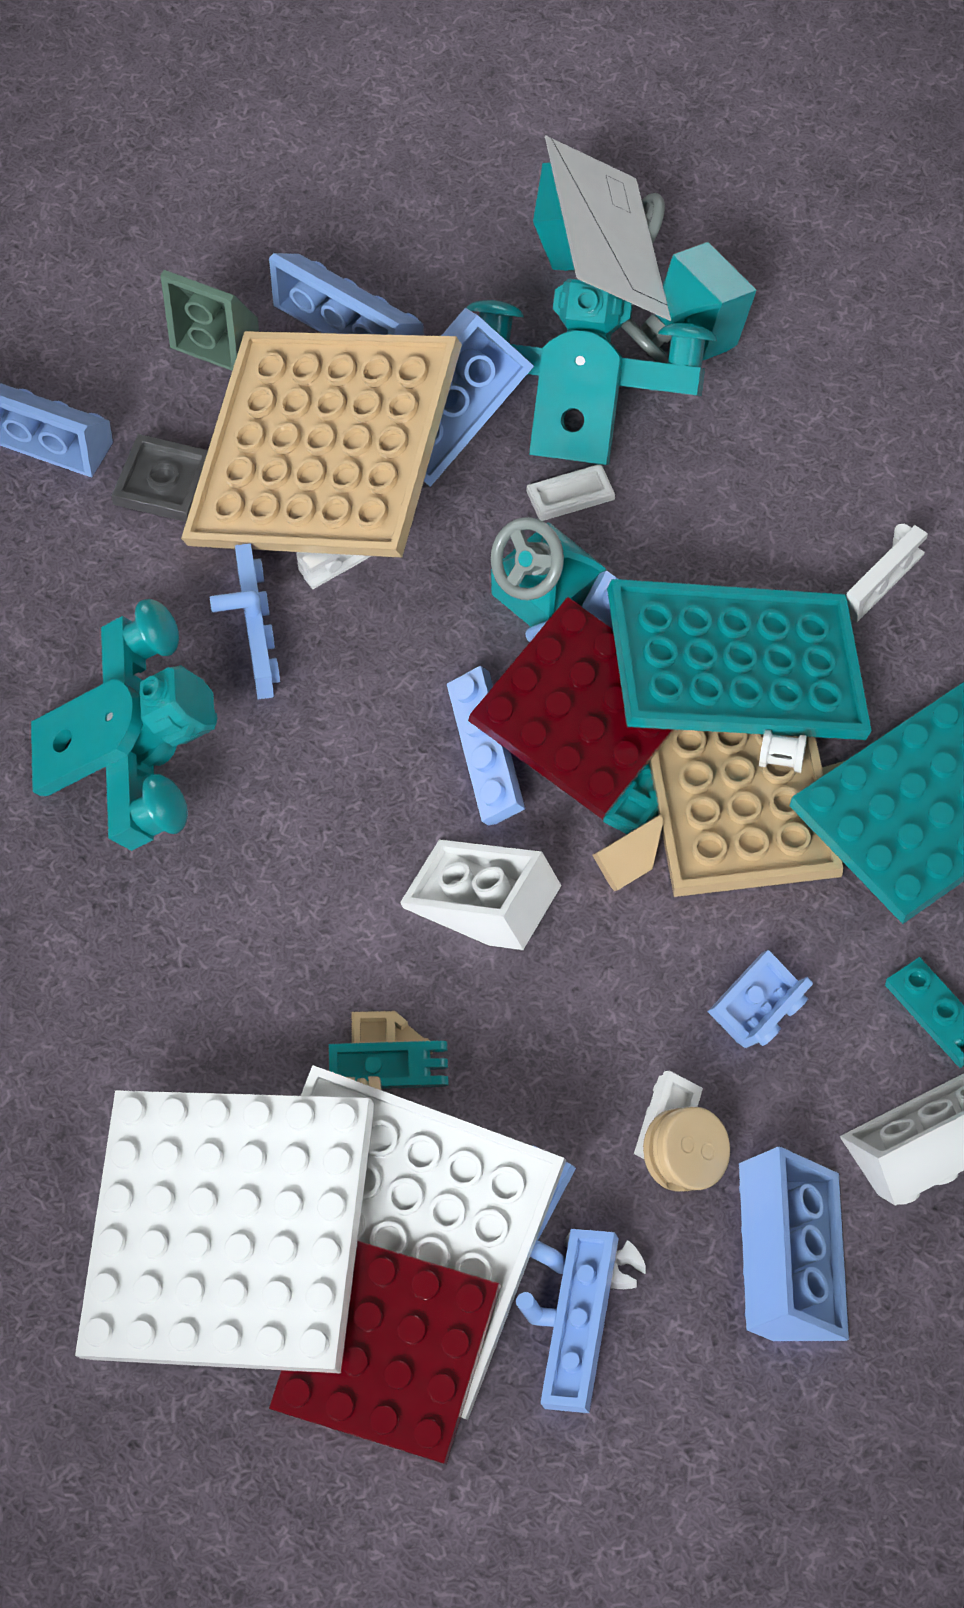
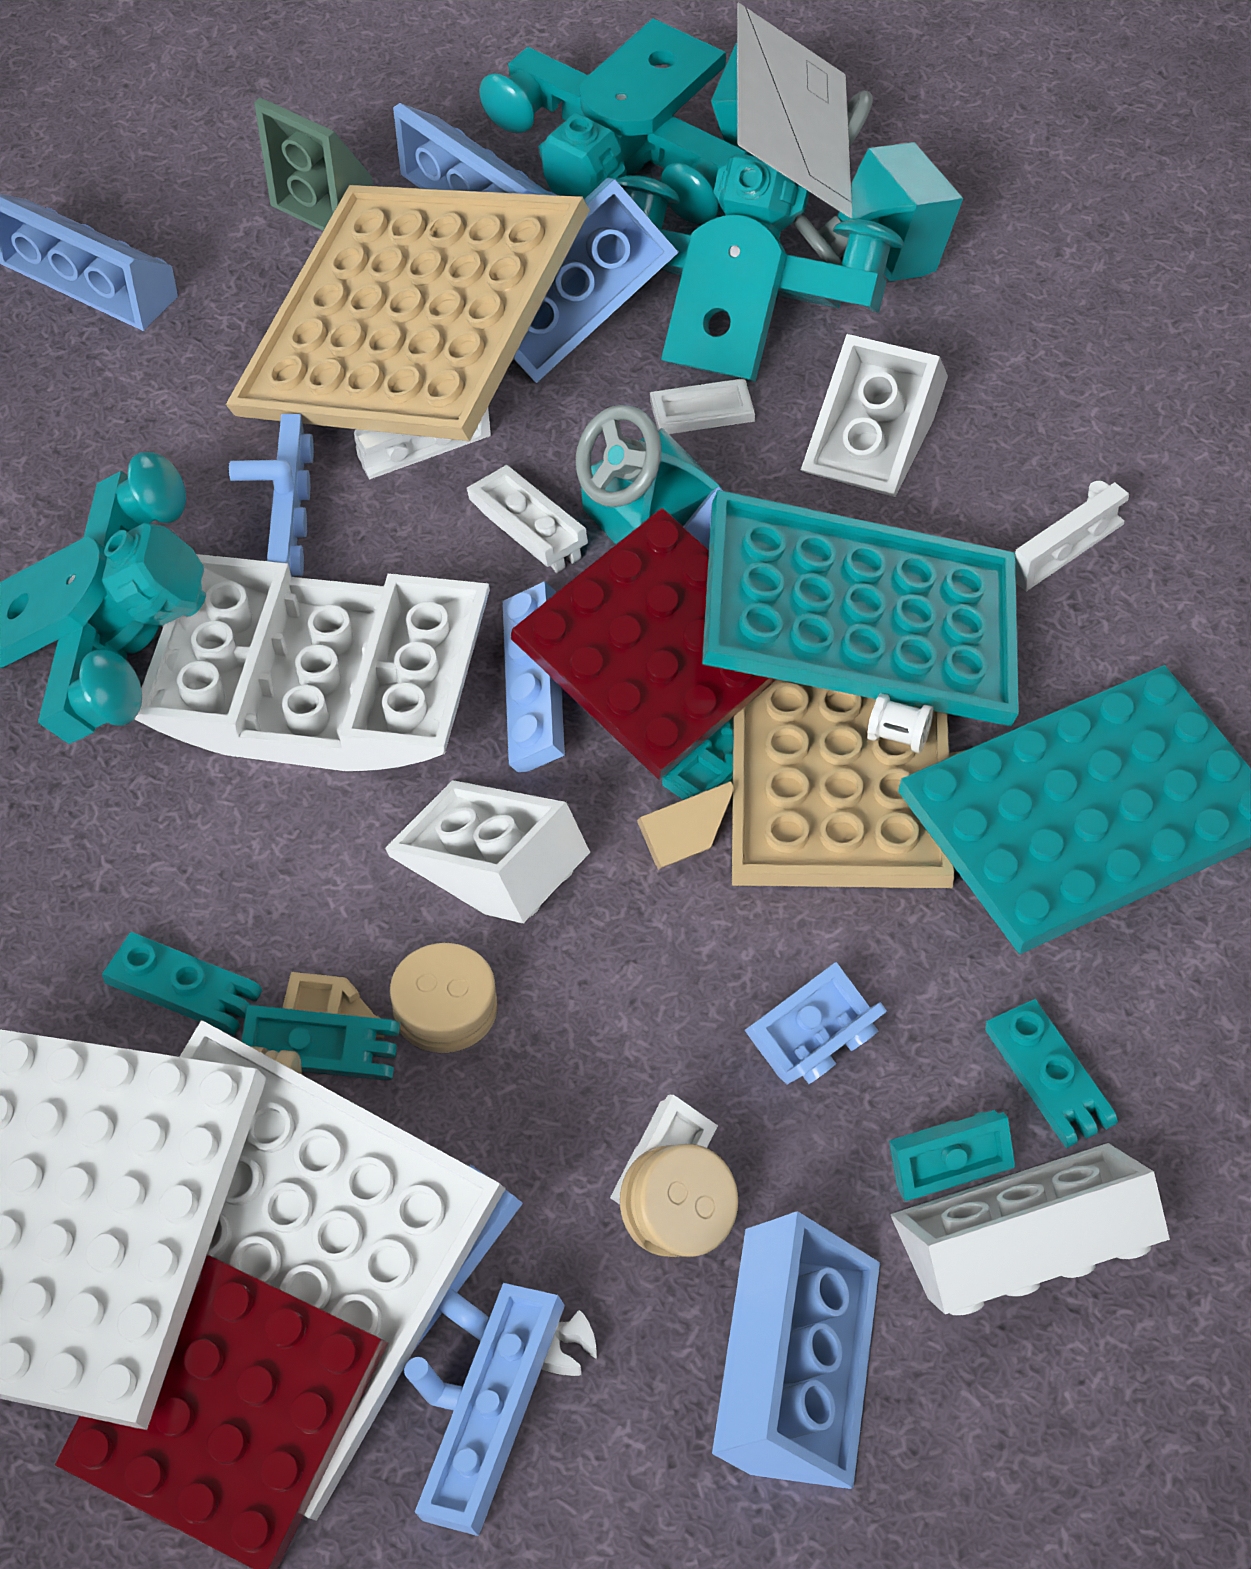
camera: 10 degrees right, 5 degrees down
(159, 477) = (216, 336): flat silver plate -> none
(267, 1032) = (180, 982): none -> teal hinge
(316, 760) = (315, 667): none -> white slope
(451, 608) = (529, 517): none -> white hinge
(457, 240) = (619, 116): none -> teal piece
(474, 1016) = (444, 997): none -> tan head
(713, 487) = (875, 415): none -> white slope
(878, 1085) = (952, 1154): none -> teal plate

